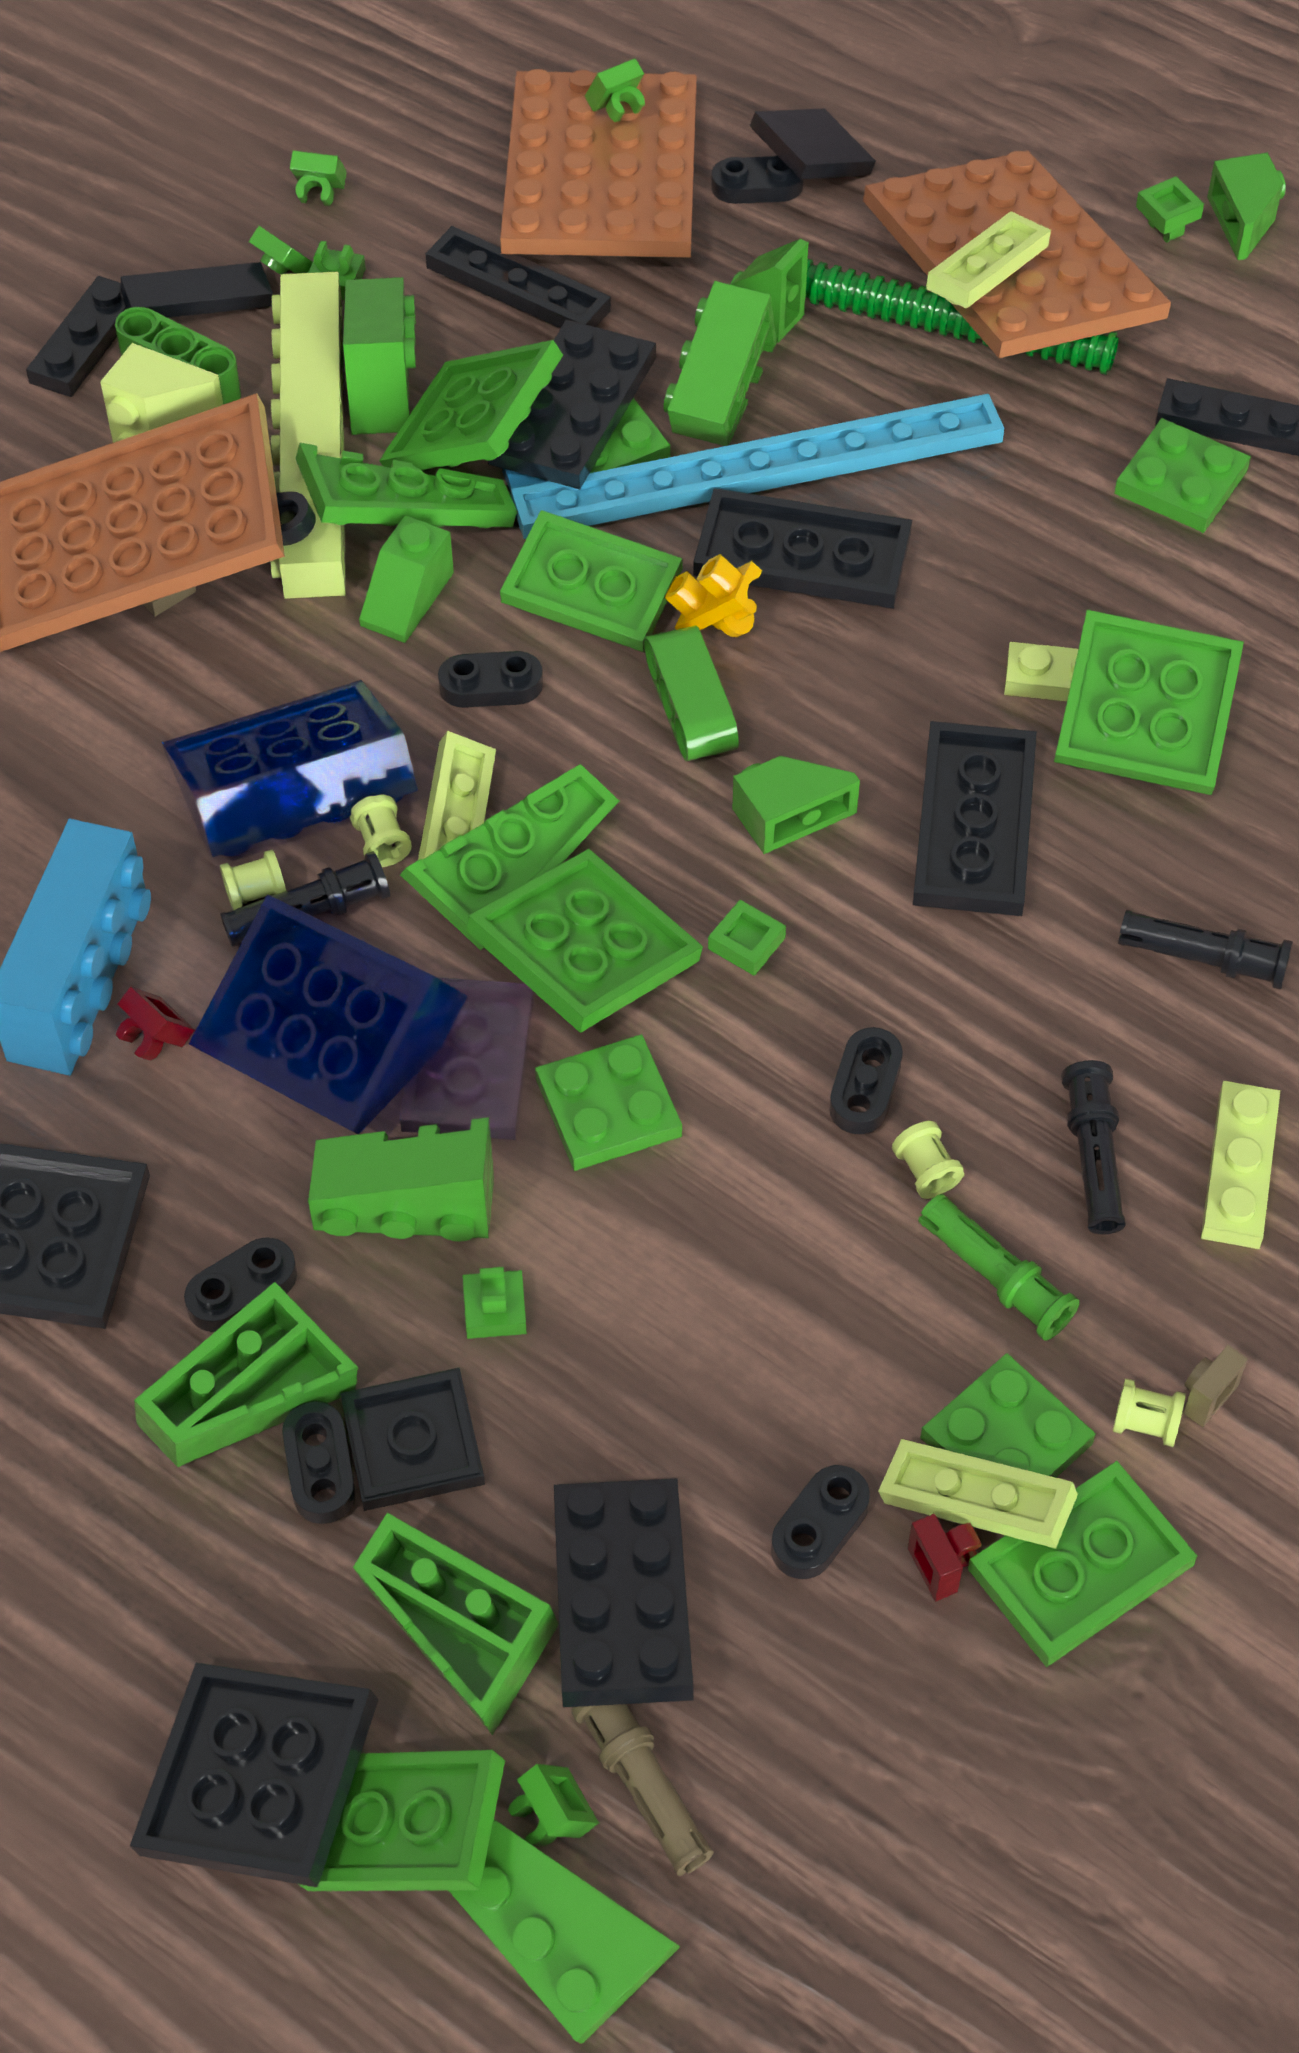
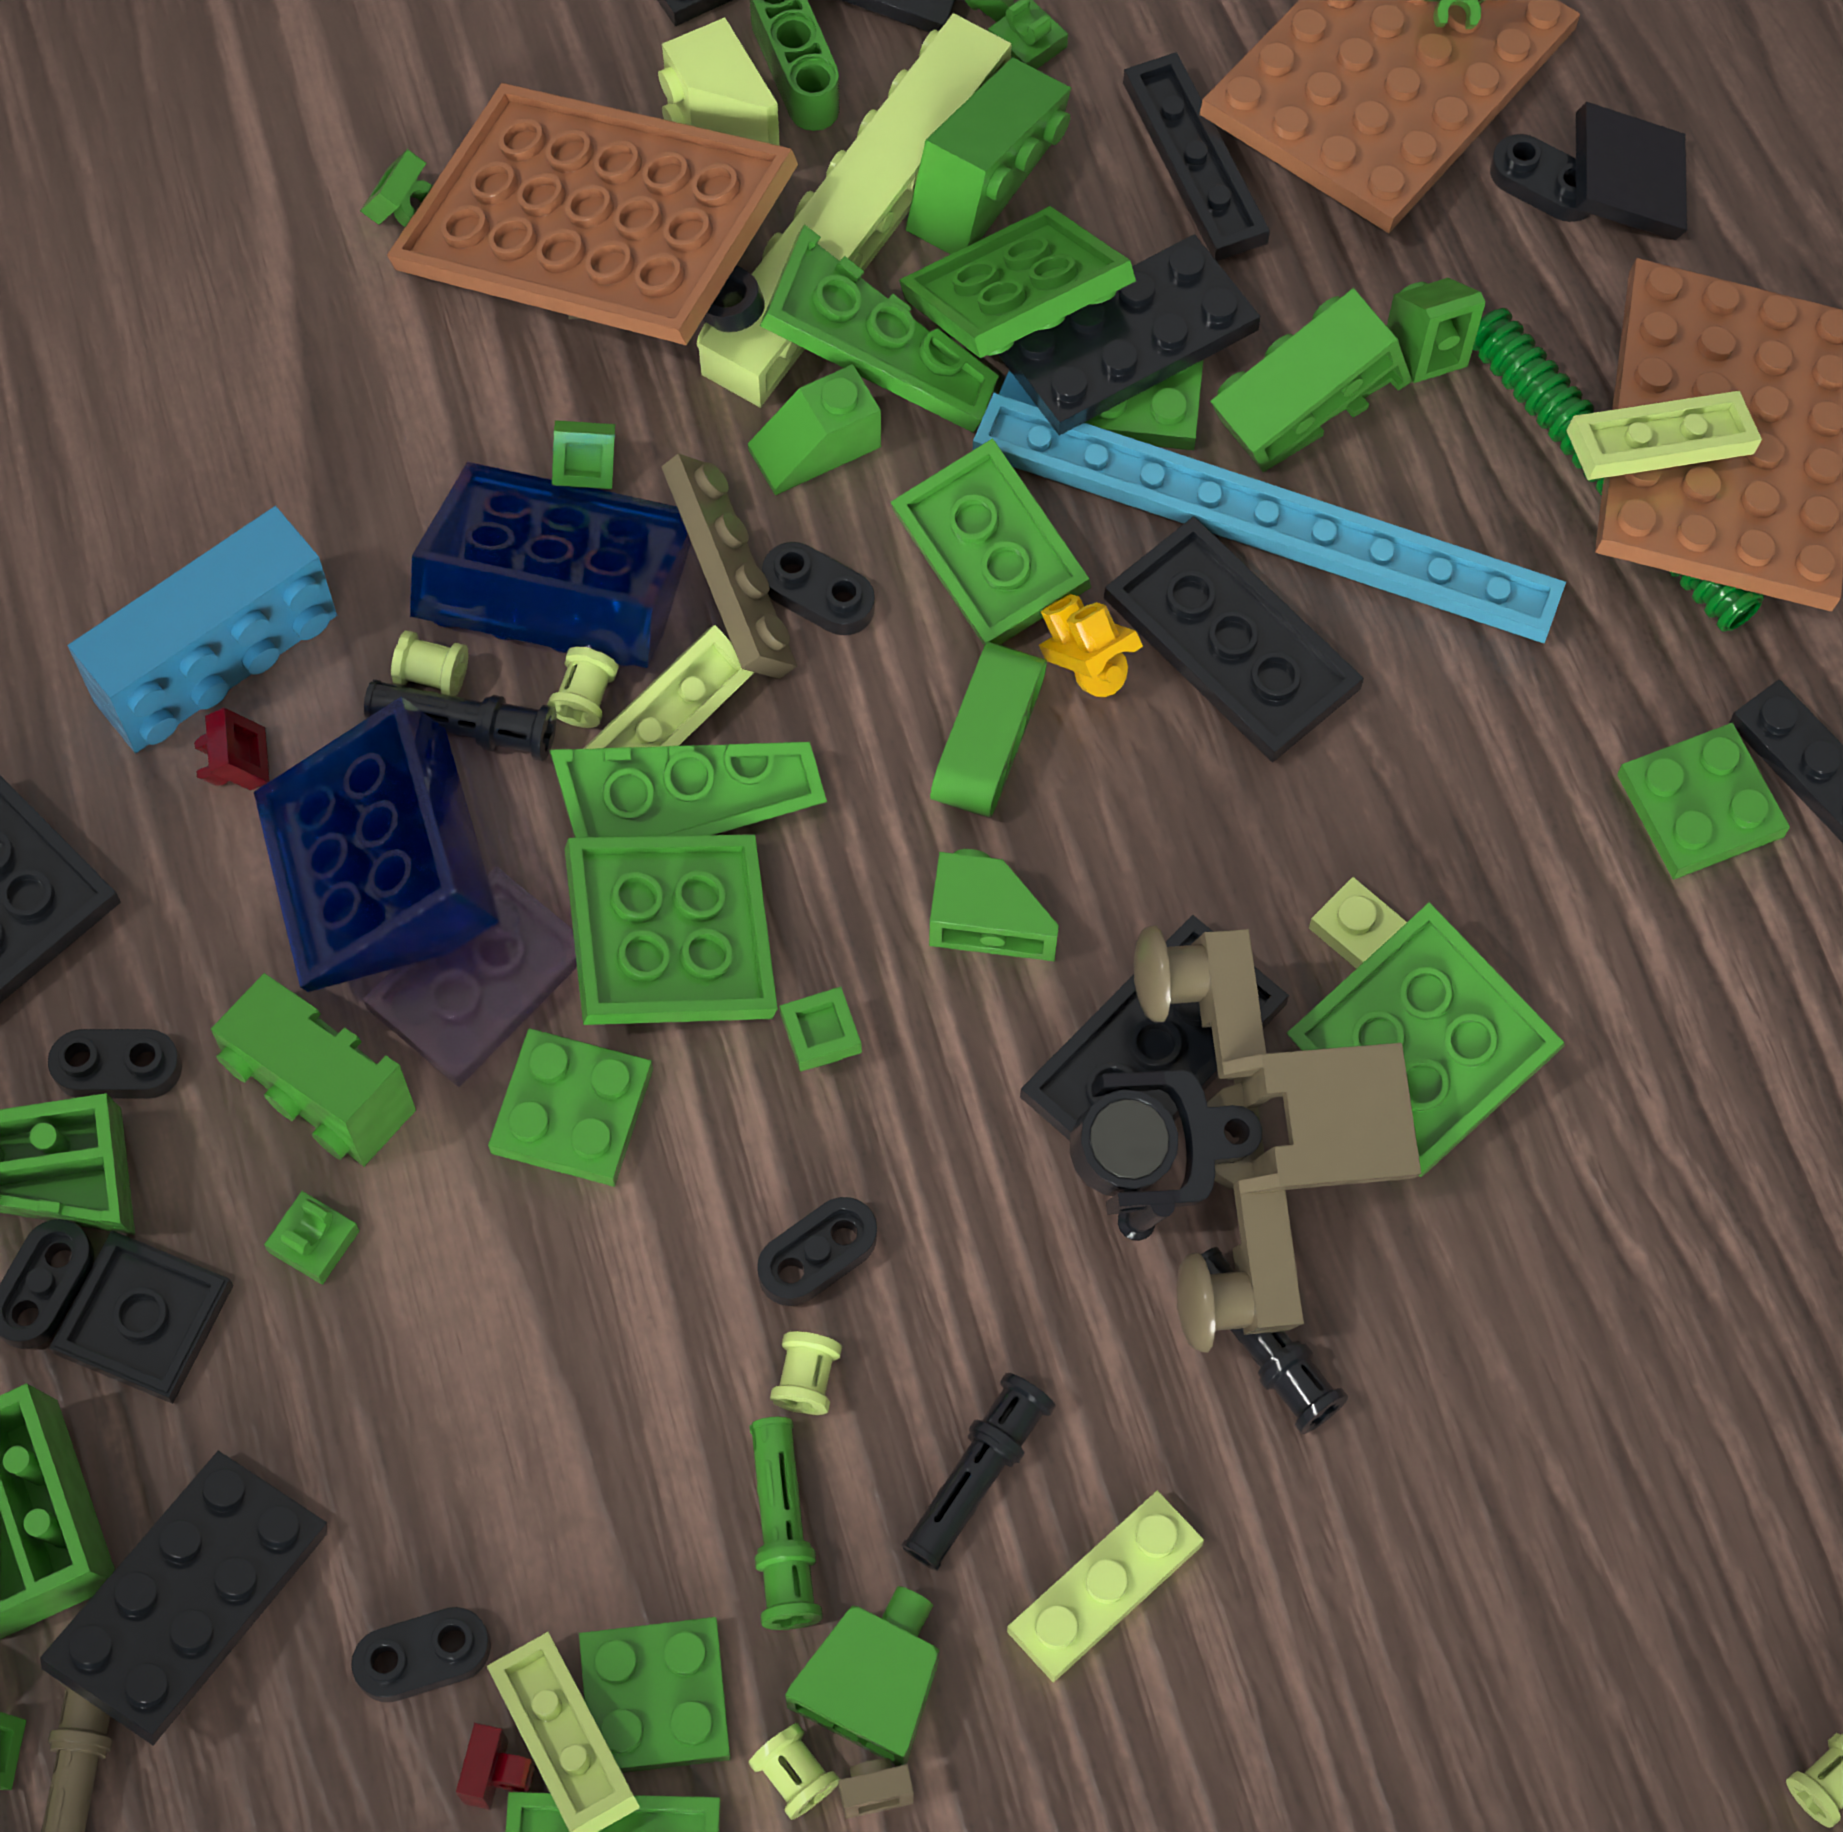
camera: 35 degrees right, 10 degrees up
(250, 684) = (583, 454): none -> bright green tile
(437, 702) = (729, 567): none -> dark tan plate
(1043, 838) = (1343, 1120): none -> dark tan piece
(1149, 1318) = (871, 1677): none -> bright green torso

